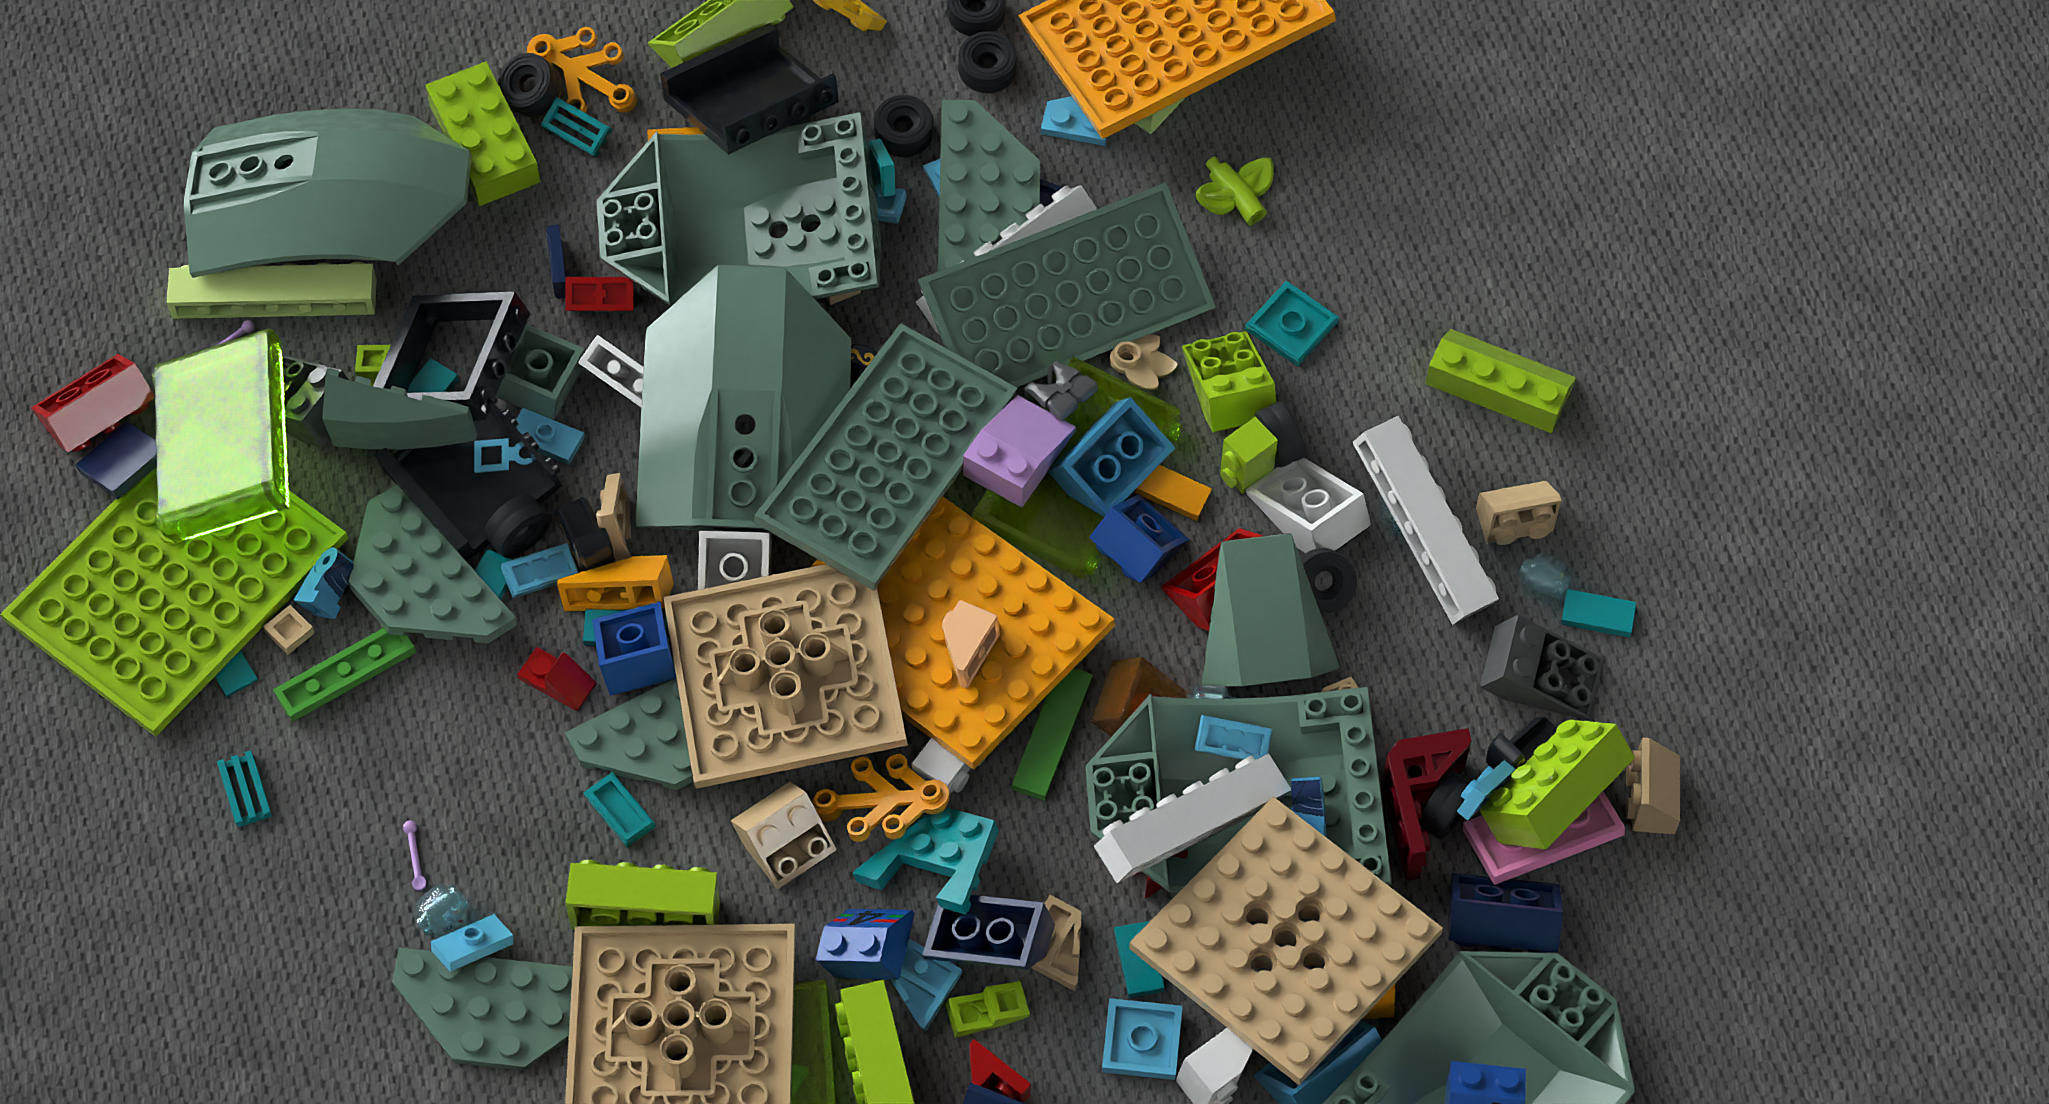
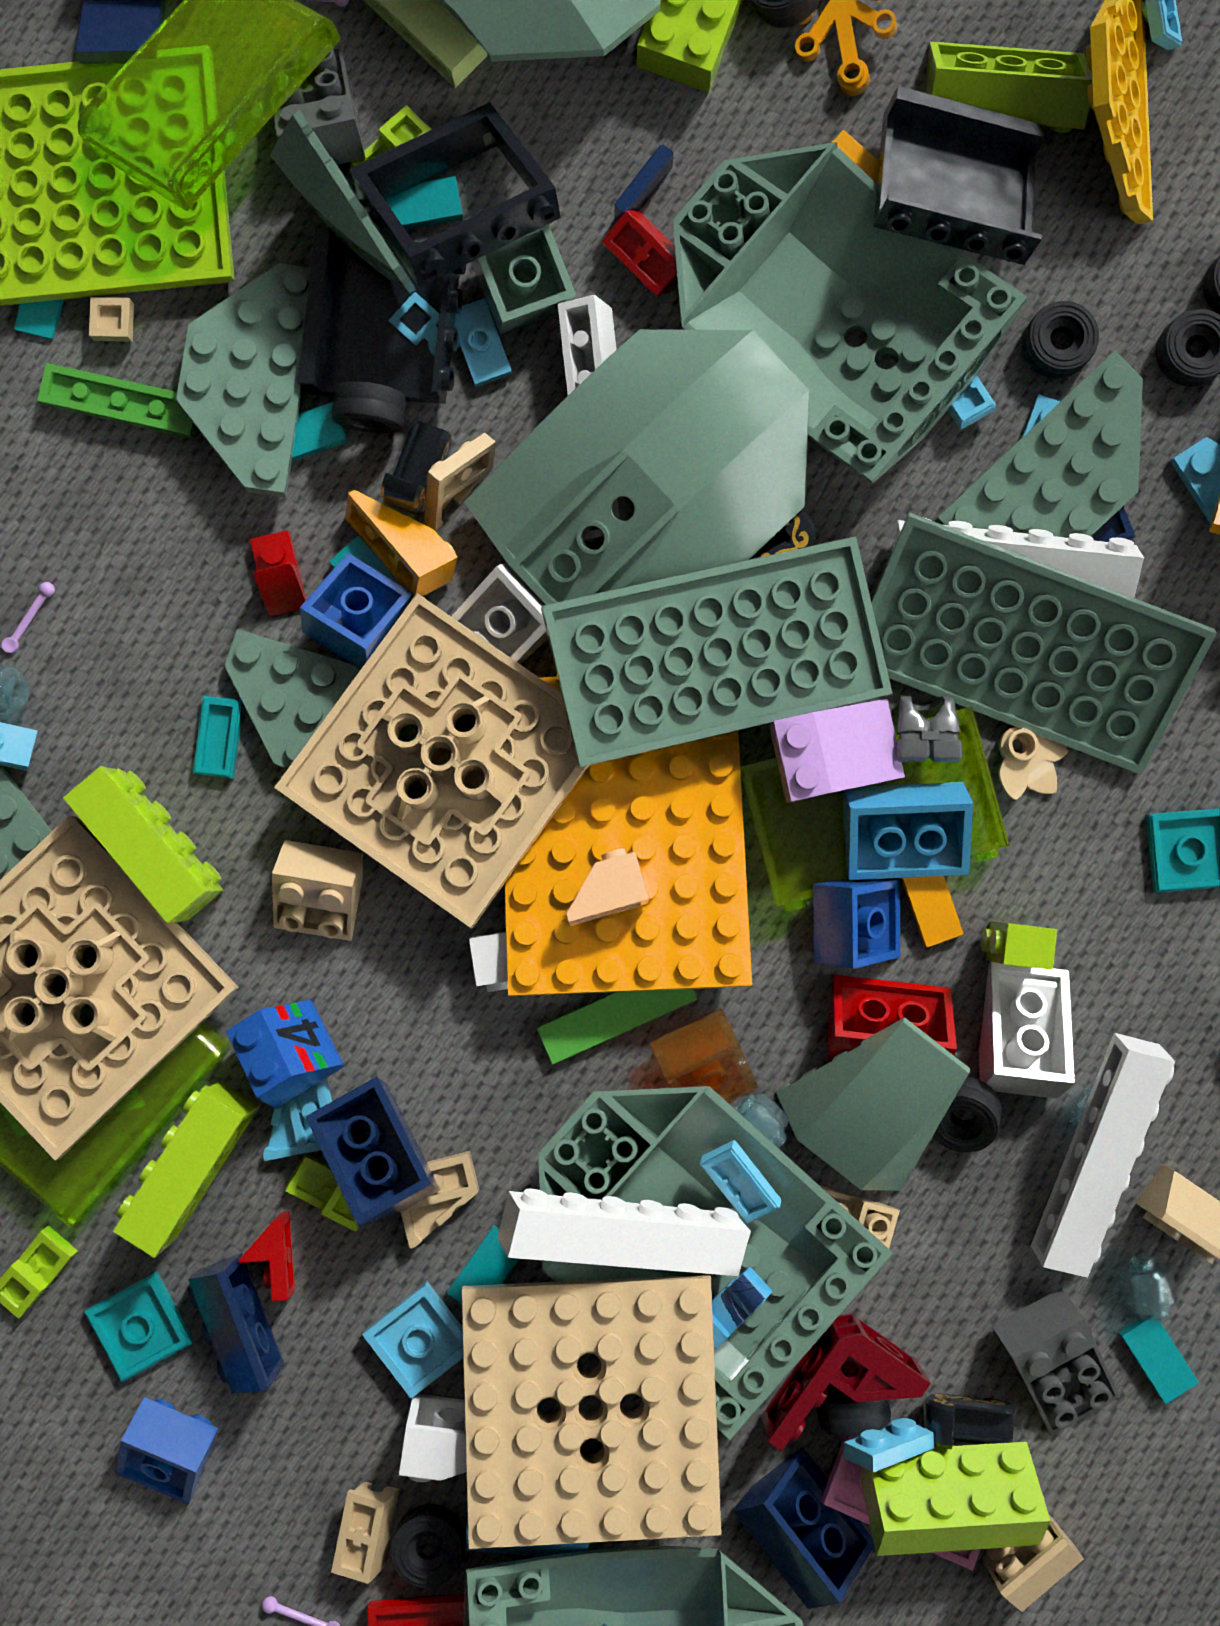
camera: 50 degrees right, 25 degrees up
(325, 584) = (170, 308): dark azure leg -> none
(538, 570) = (352, 462): medium azure plate -> none
(599, 140) = (794, 97): teal tile -> none
(882, 167) = (997, 366): teal tile -> none
(884, 800) = (421, 948): light orange plant -> none
(942, 843) = (429, 1035): teal wing -> none
(1229, 379) = (1082, 854): lime slope -> none
(1283, 426) = (1072, 950): black tyre -> none

